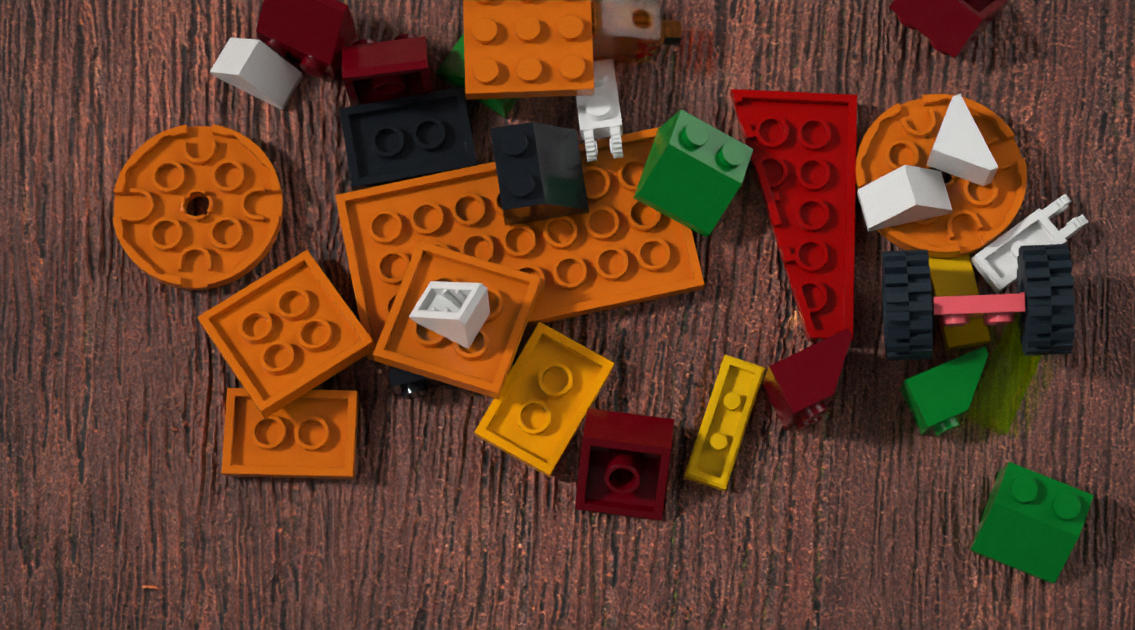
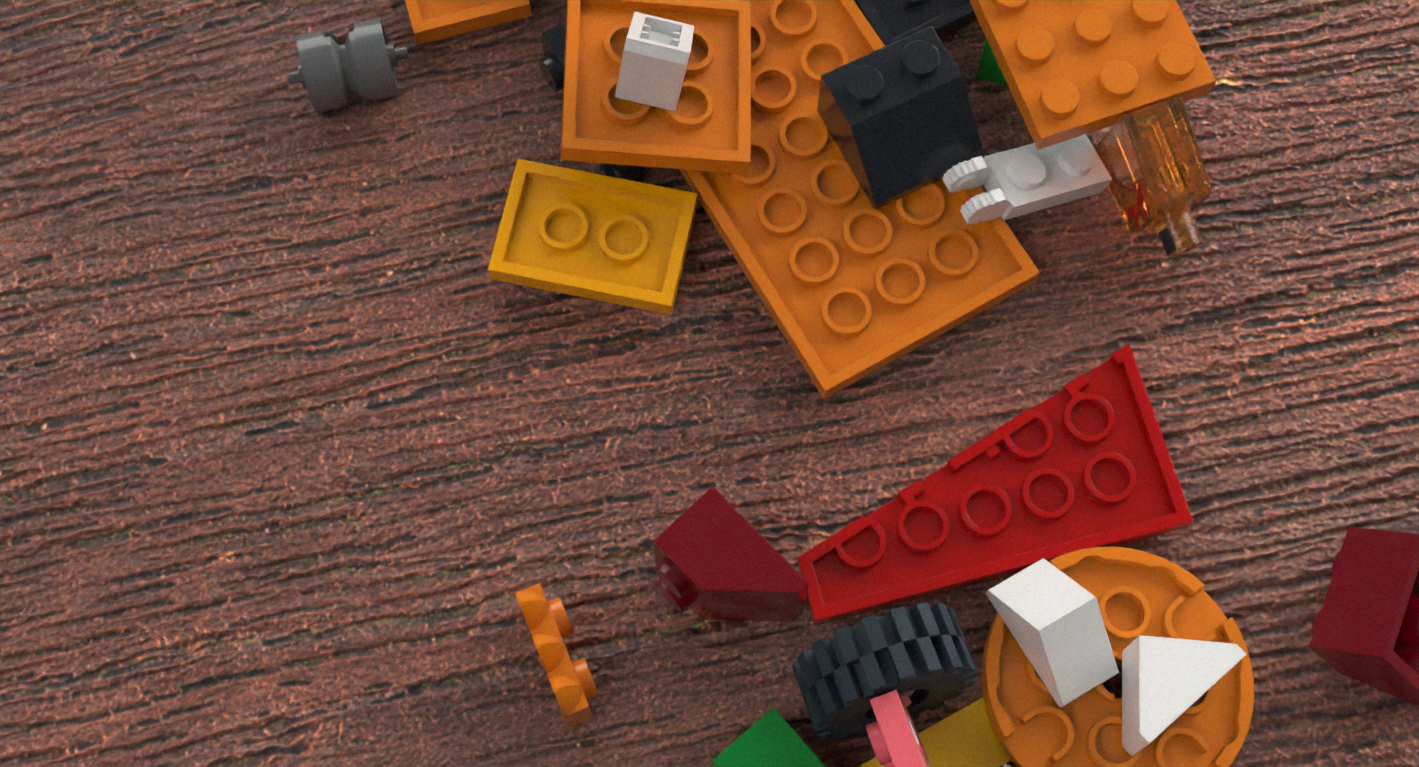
camera: 70 degrees right, 5 degrees down
(363, 528) = (338, 67): none -> dark grey wheel
(624, 464) = (535, 360): dark red slope -> none
(692, 172) = (977, 318): green slope -> none
(724, 423) = (632, 481): yellow tile -> none
(845, 502) = (548, 627): none -> orange plate

